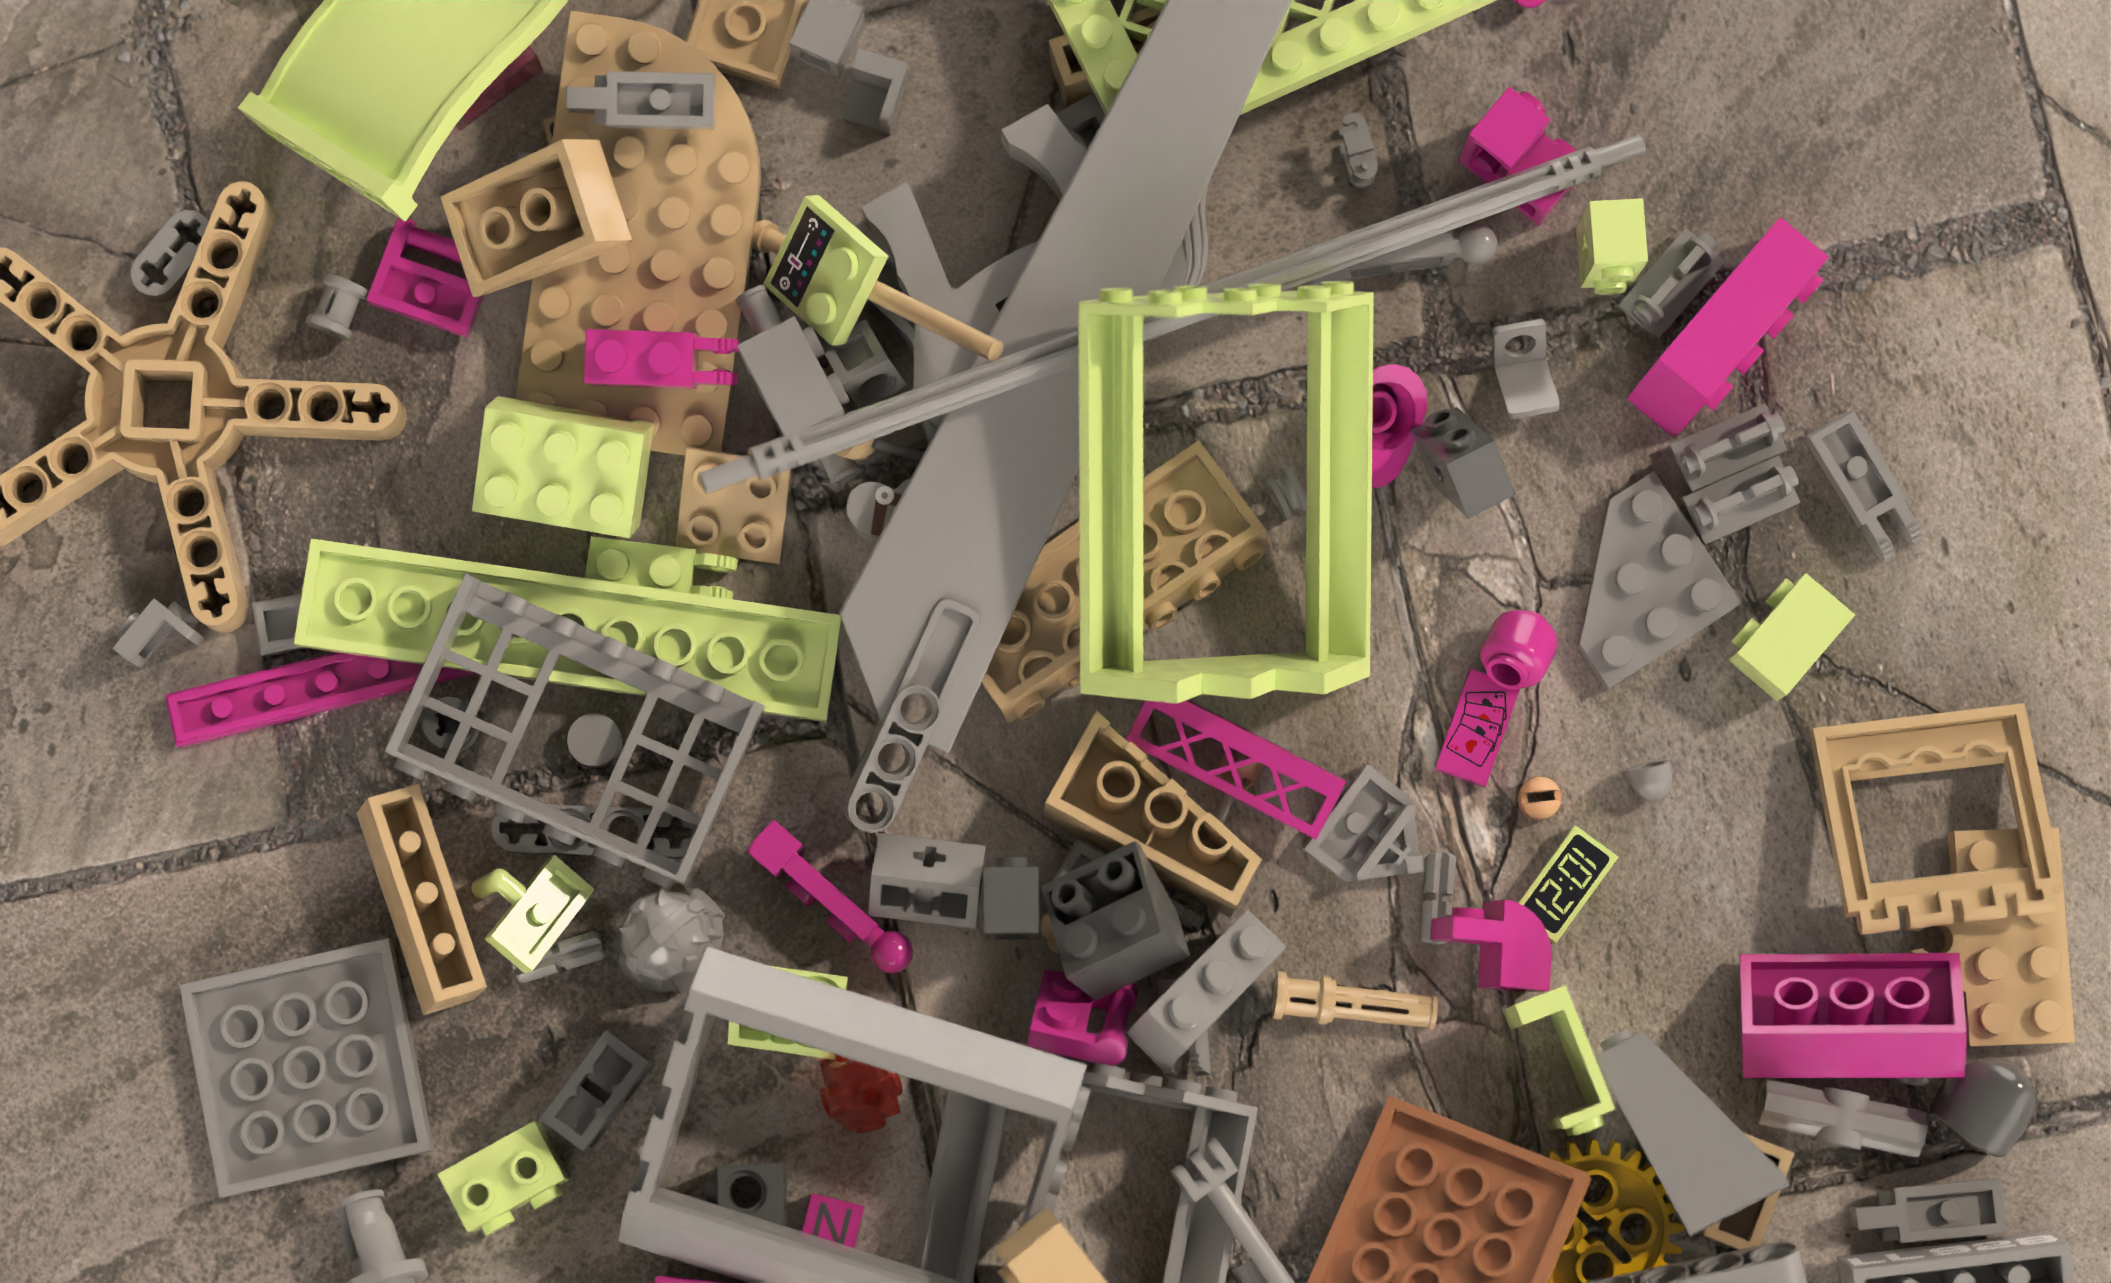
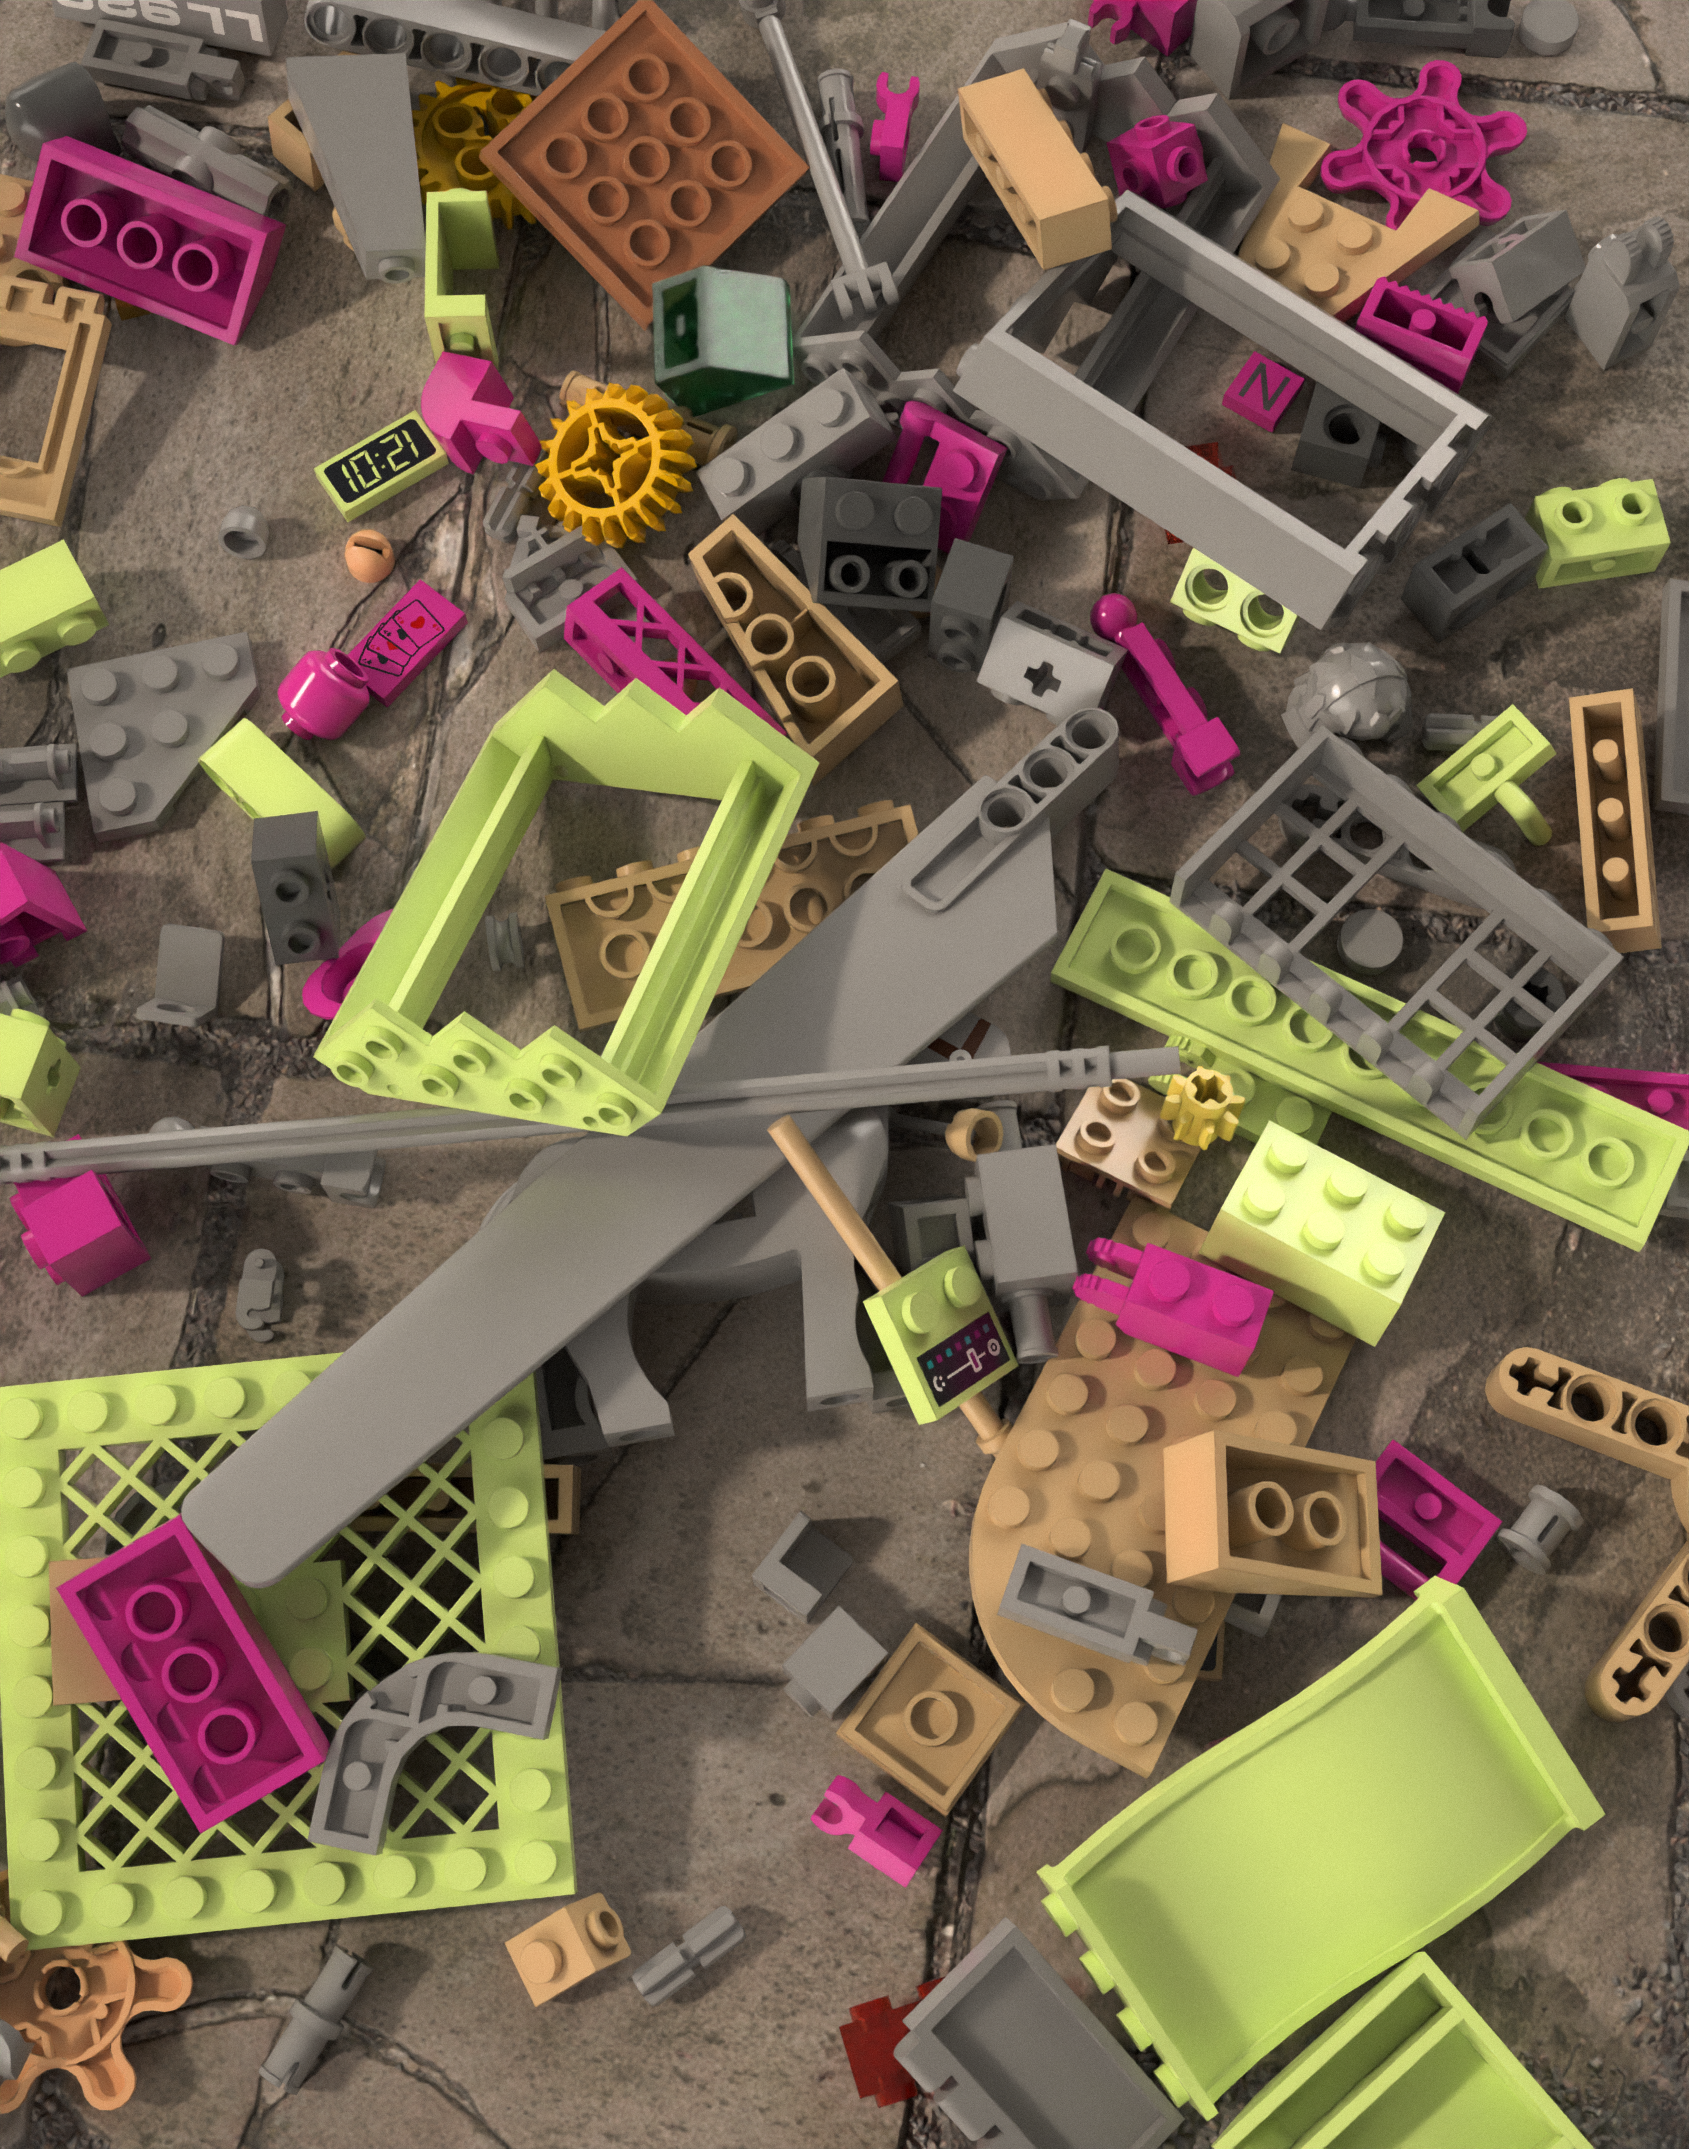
camera: 160 degrees left, 10 degrees down
(699, 530) = (1202, 1107): none -> light yellow gear
(1314, 1090) = (721, 337): none -> clear green slope
(1358, 905) = (641, 480): none -> yellow gear
(1518, 553) = (272, 784): none -> yellowish green beam

